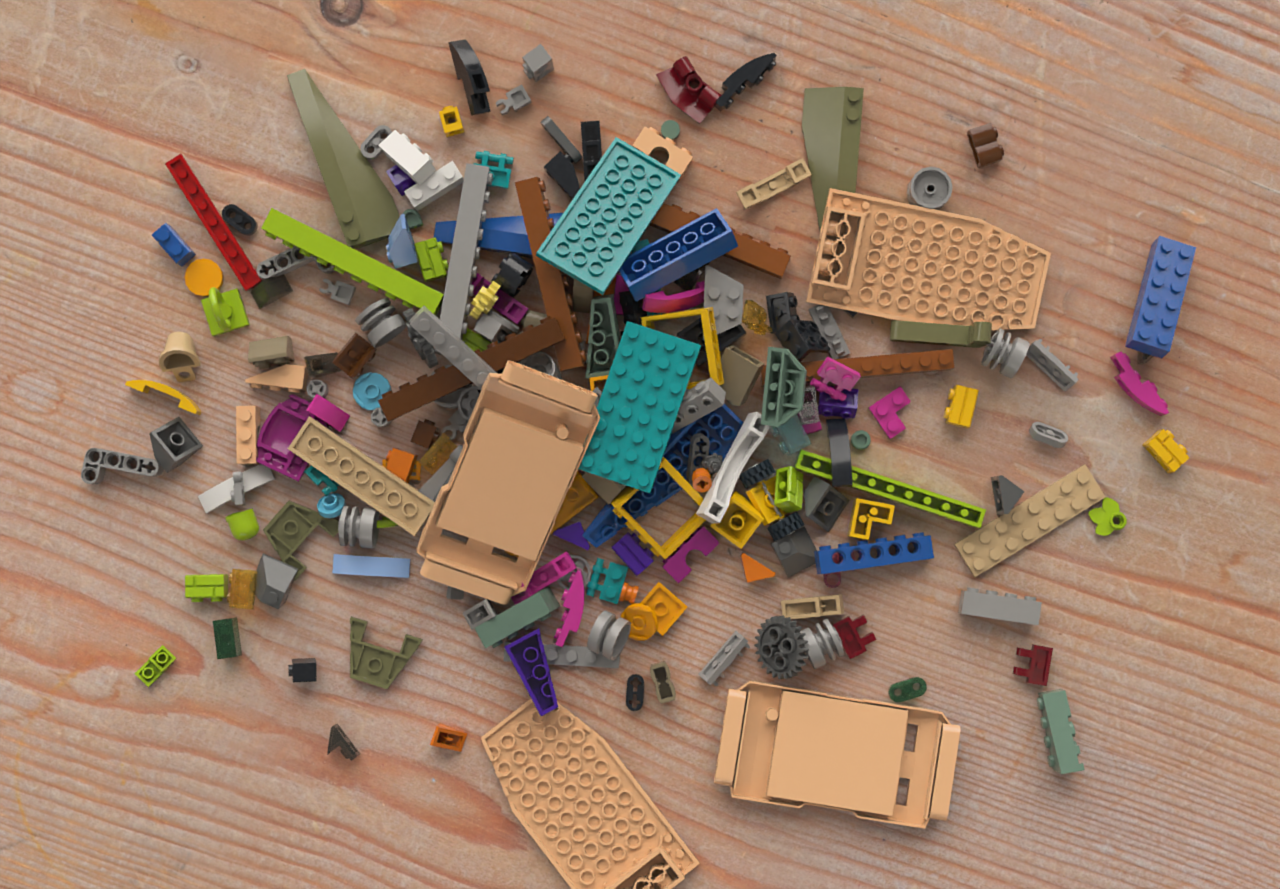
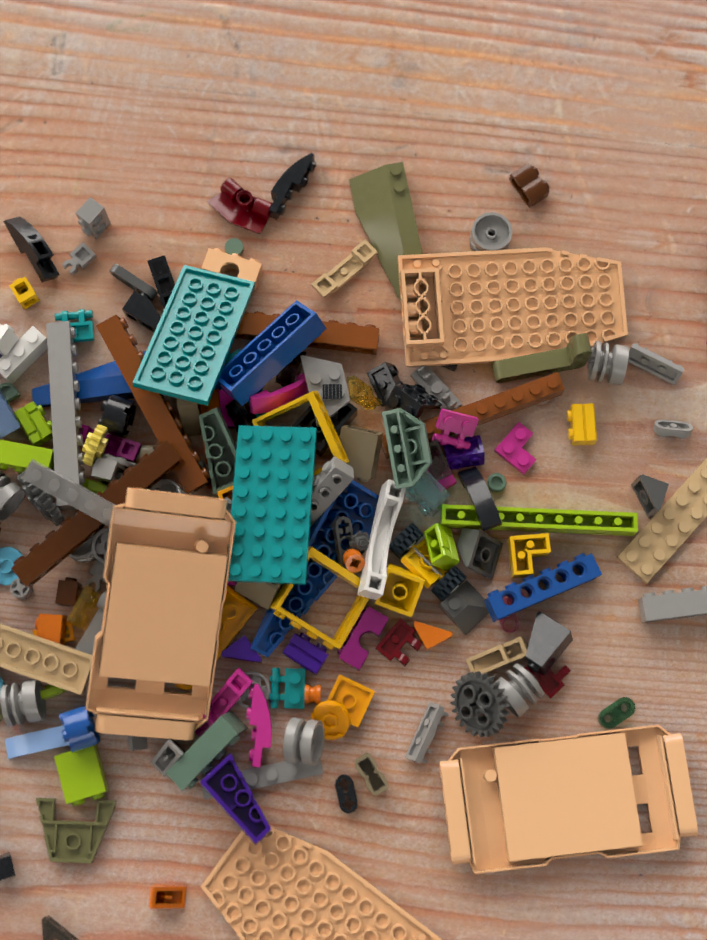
camera: 20 degrees left, 10 degrees down
(397, 607) = (81, 775): none -> lime brick
(405, 566) = (79, 729): none -> blue brick
(720, 564) = (396, 639): none -> dark red plate
(726, 310) = (332, 391): none -> black sticker
(861, 608) = (546, 643): none -> slope

